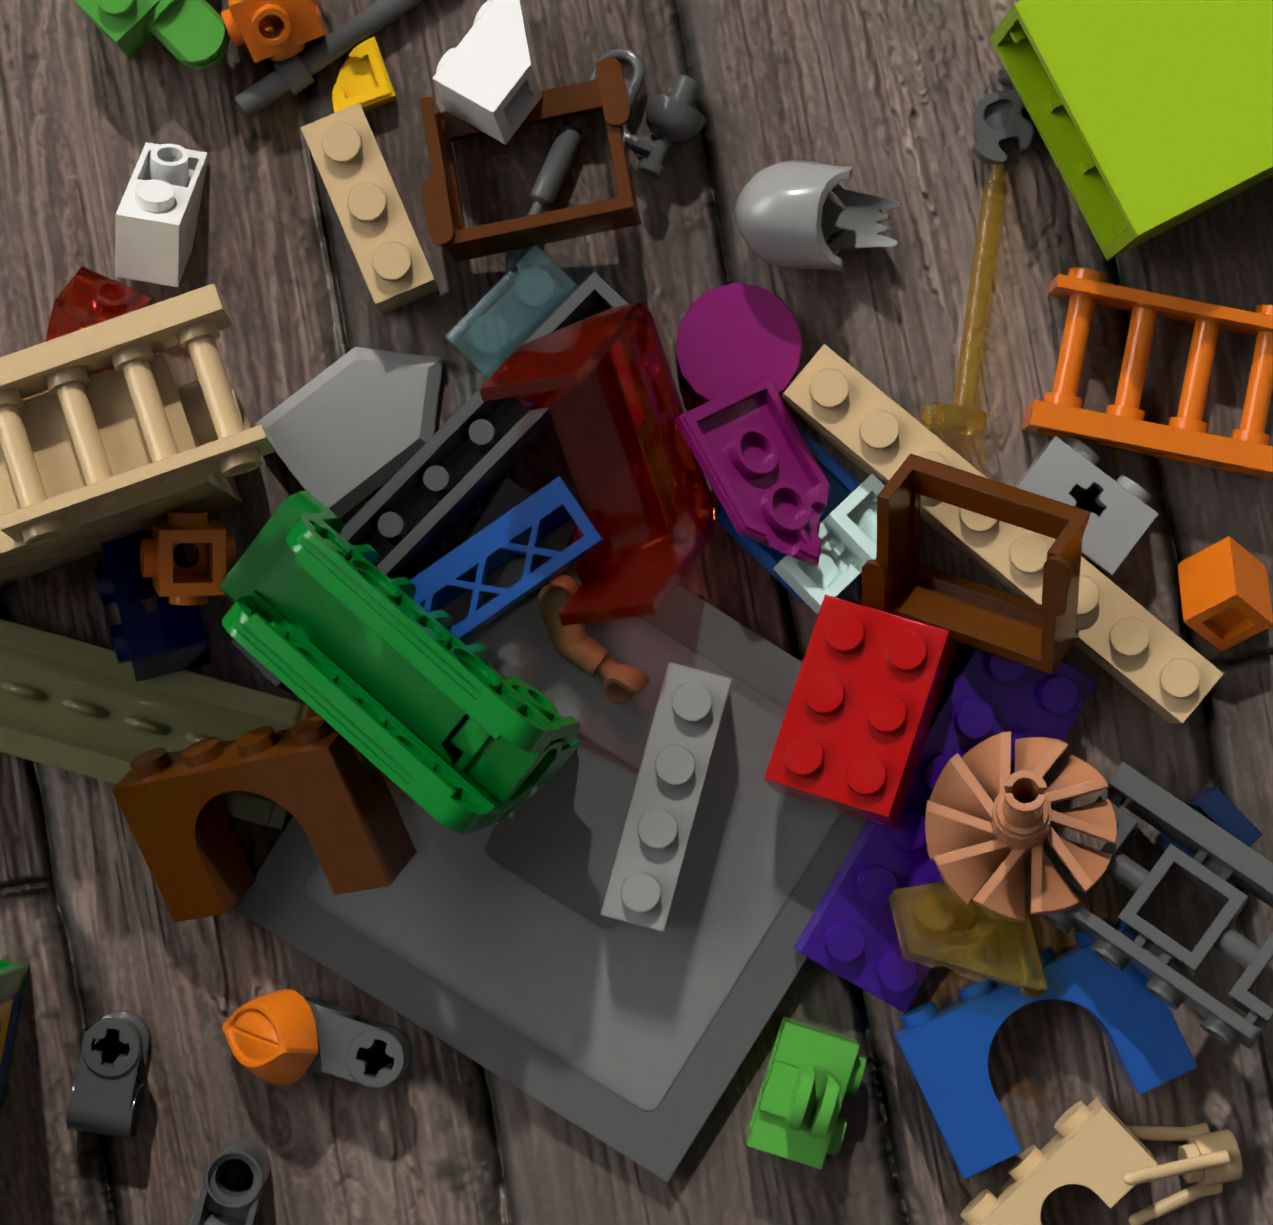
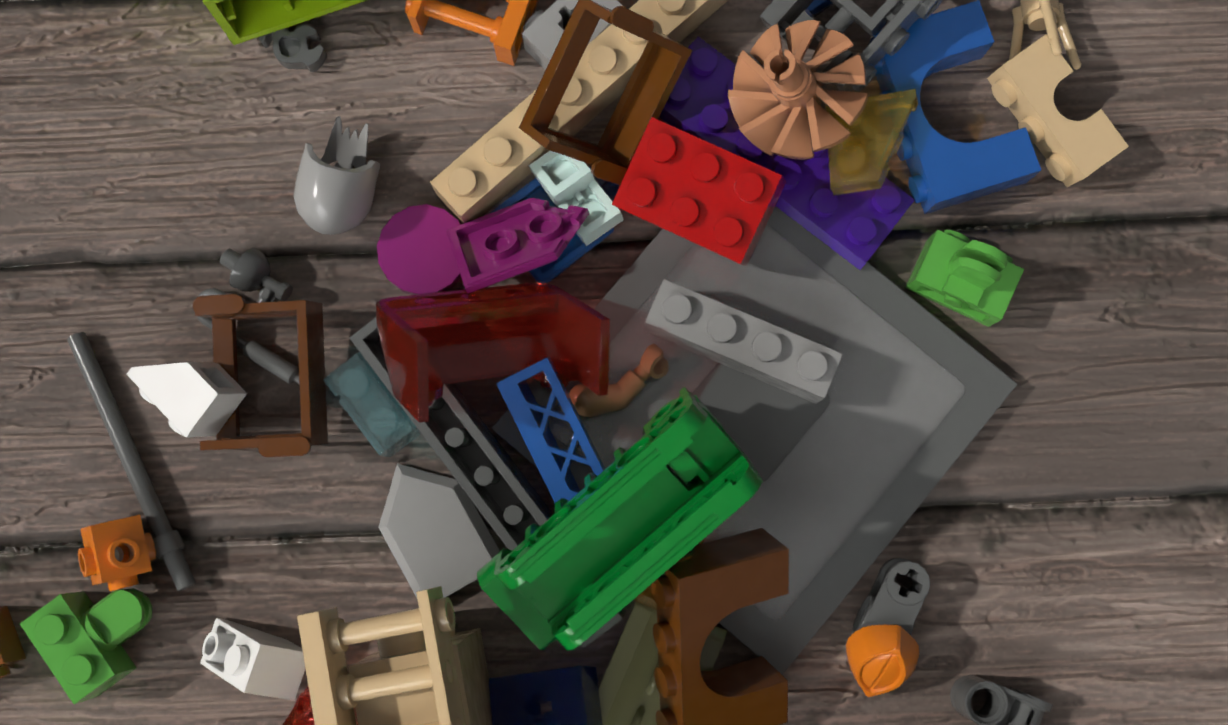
camera: 80 degrees left, 5 degrees down
(194, 581) = (528, 659): orange brick -> none
(363, 79) = (184, 494): yellow tile -> none
(369, 208) = (275, 499): tan arch -> none
(961, 416) = (497, 102): clear yellow piece -> none

